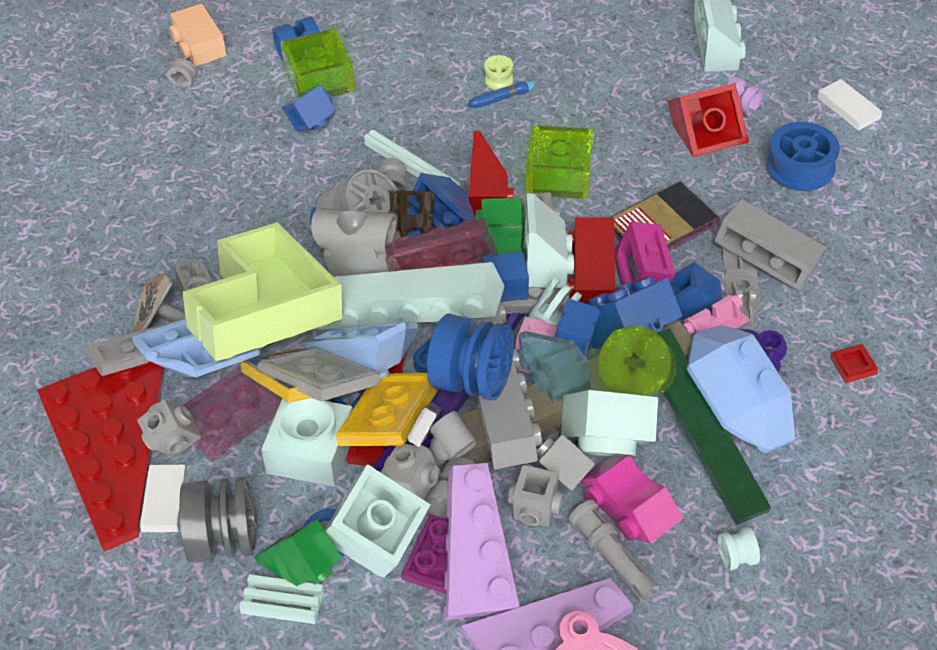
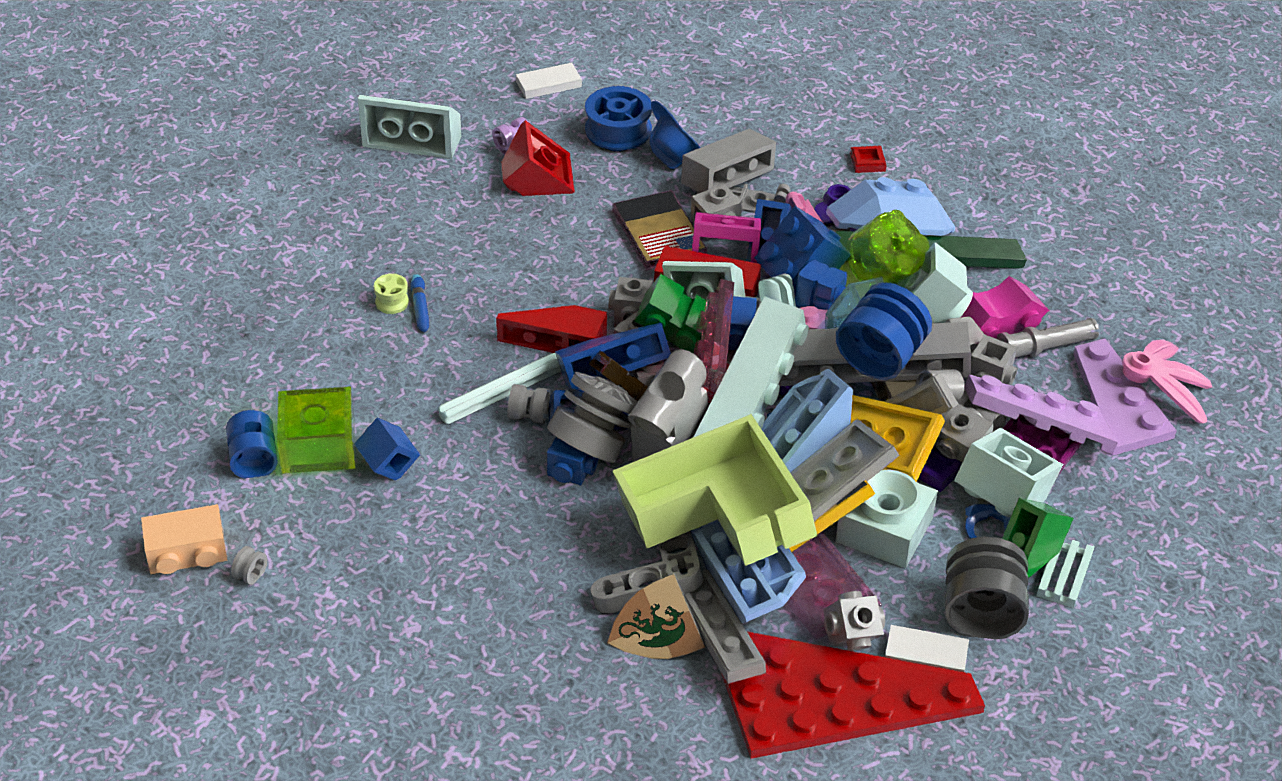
camera: 80 degrees left, 5 degrees down
(559, 161) = (563, 268): clear neon green brick -> none
(690, 245) = (716, 201): none -> light grey brick
(738, 548) = (1058, 264): light aqua wheel -> none
(787, 195) = (668, 138): none -> blue piece

